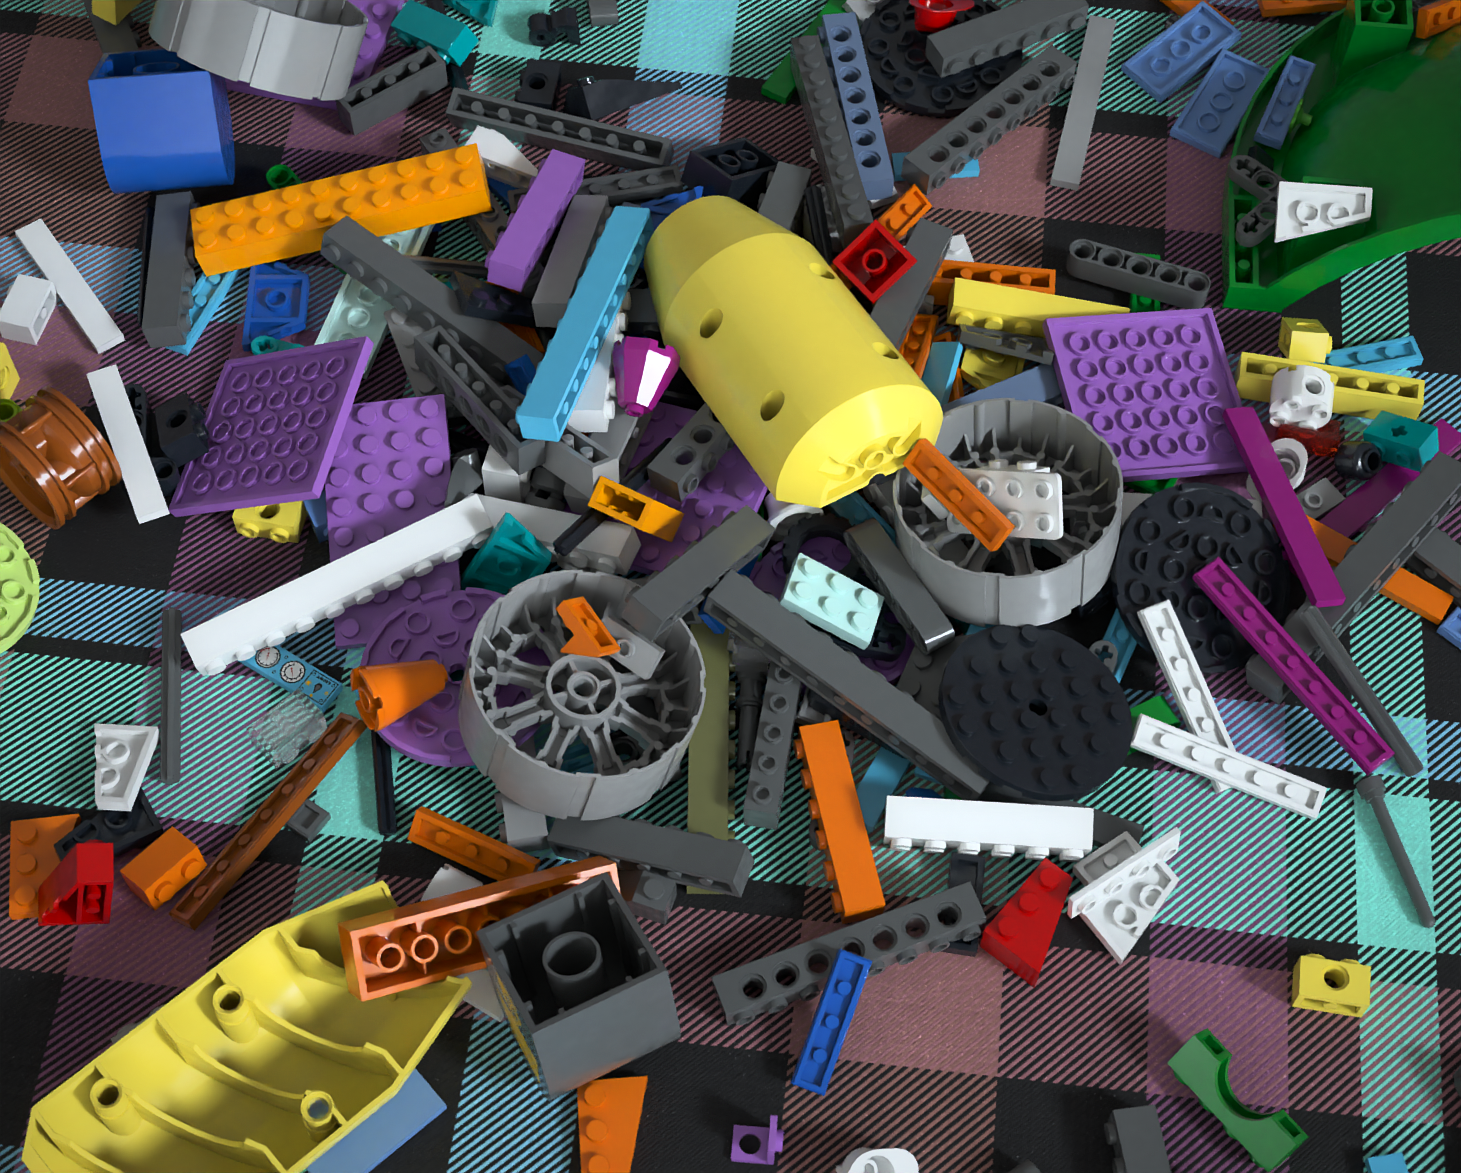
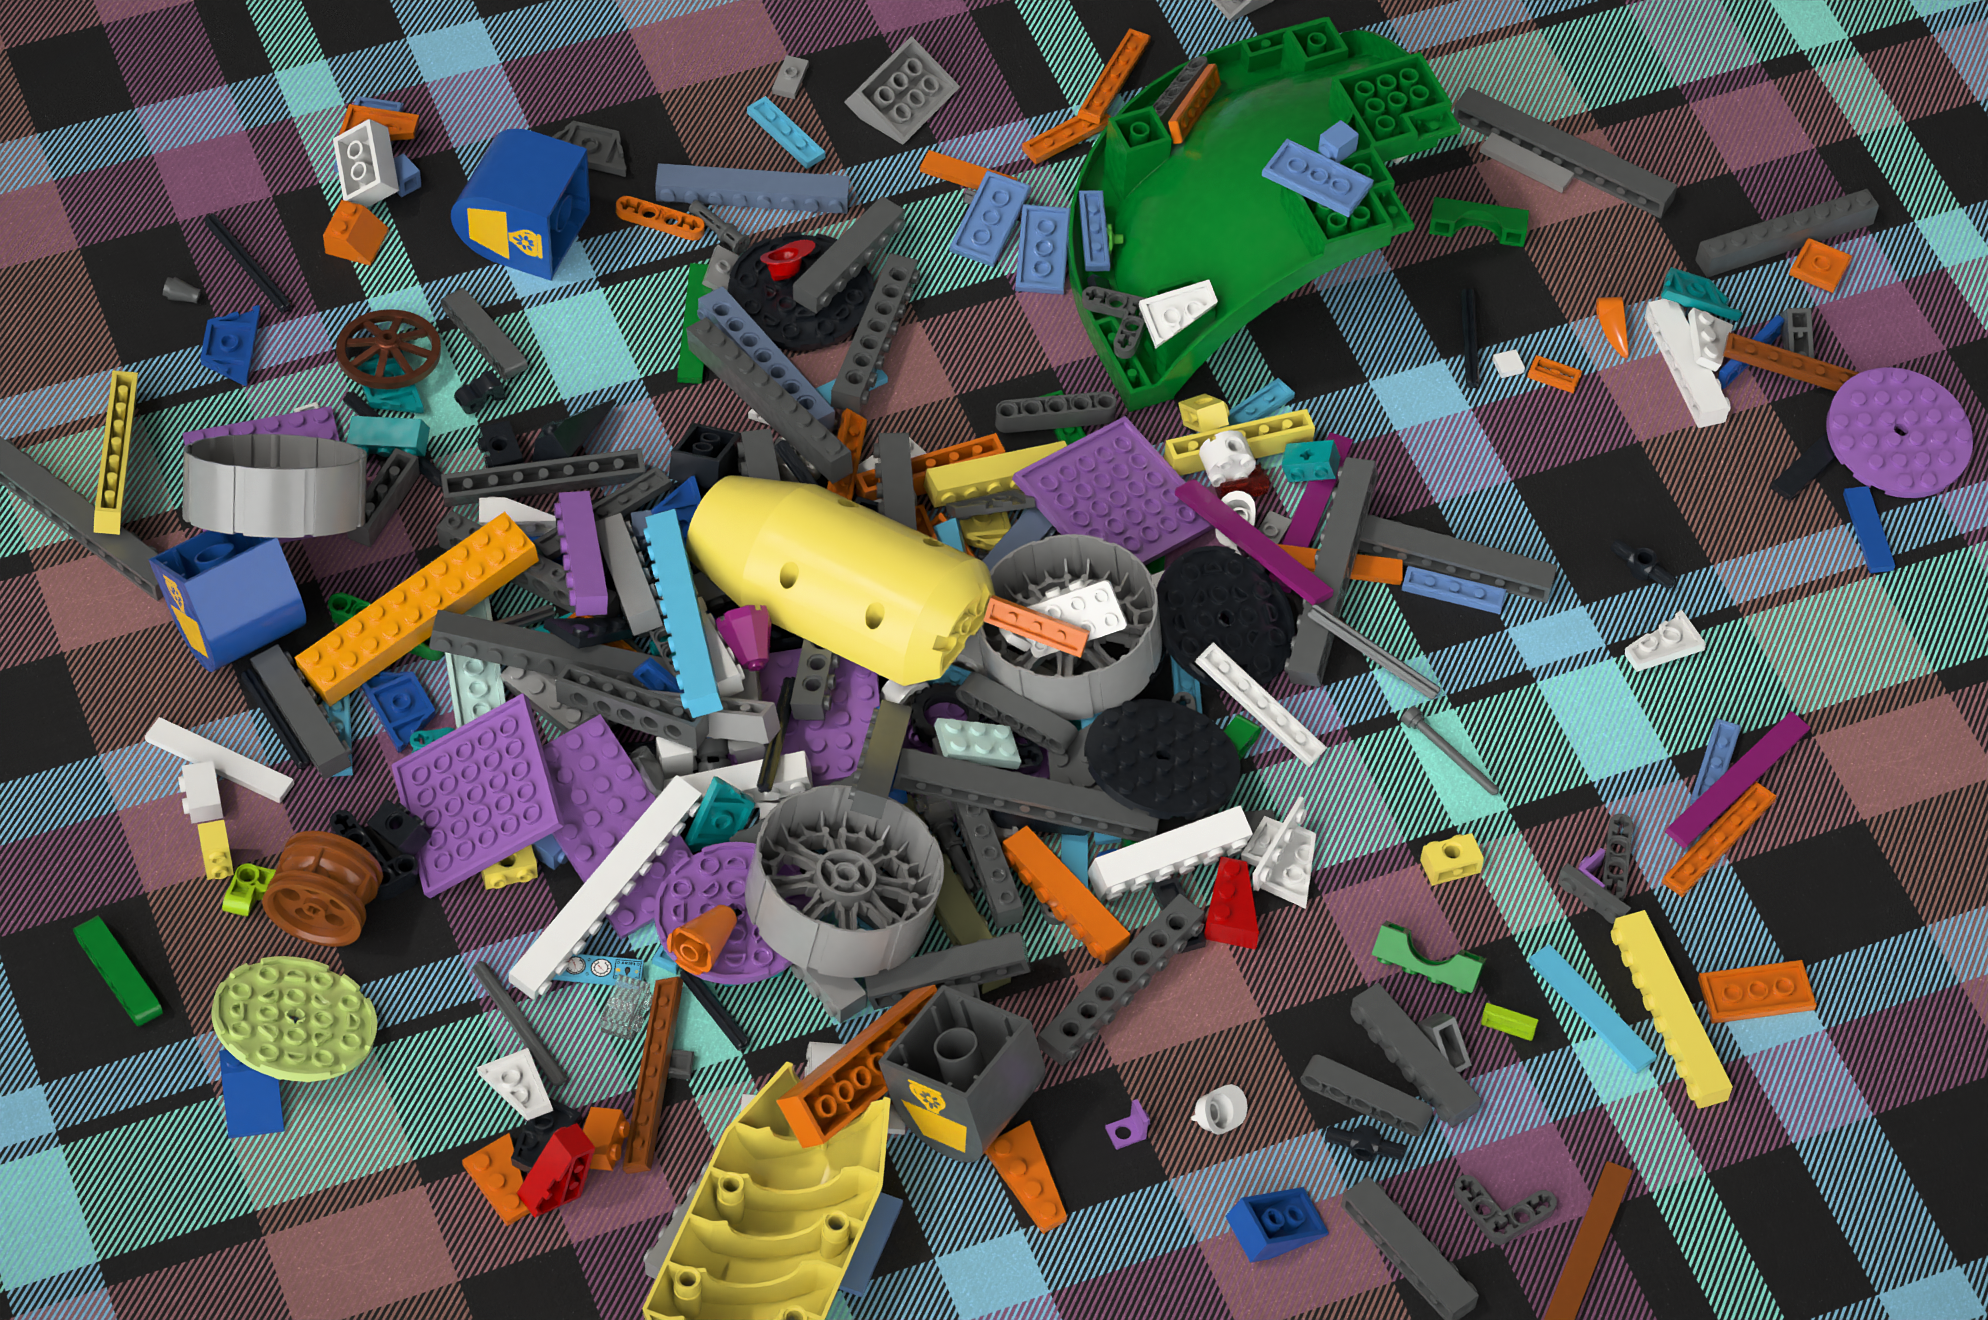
camera: 30 degrees left, 5 degrees down
(127, 444) = (395, 875): white tile -> none
(469, 846) = (812, 1028): orange plate -> none
(589, 632) = (833, 835): orange slope -> none
(636, 509) = (801, 736): light orange slope -> none
(636, 650) = (860, 833): light grey plate -> none
(831, 1022) = (1136, 1027): blue tile -> none
(874, 262) = (869, 480): red slope -> none
(1083, 103) = (936, 290): light grey tile -> none
(1227, 767) = (1309, 743): white tile -> none
(1293, 666) = (1319, 652): magenta tile -> none
(1357, 460) = (1287, 488): black head -> none

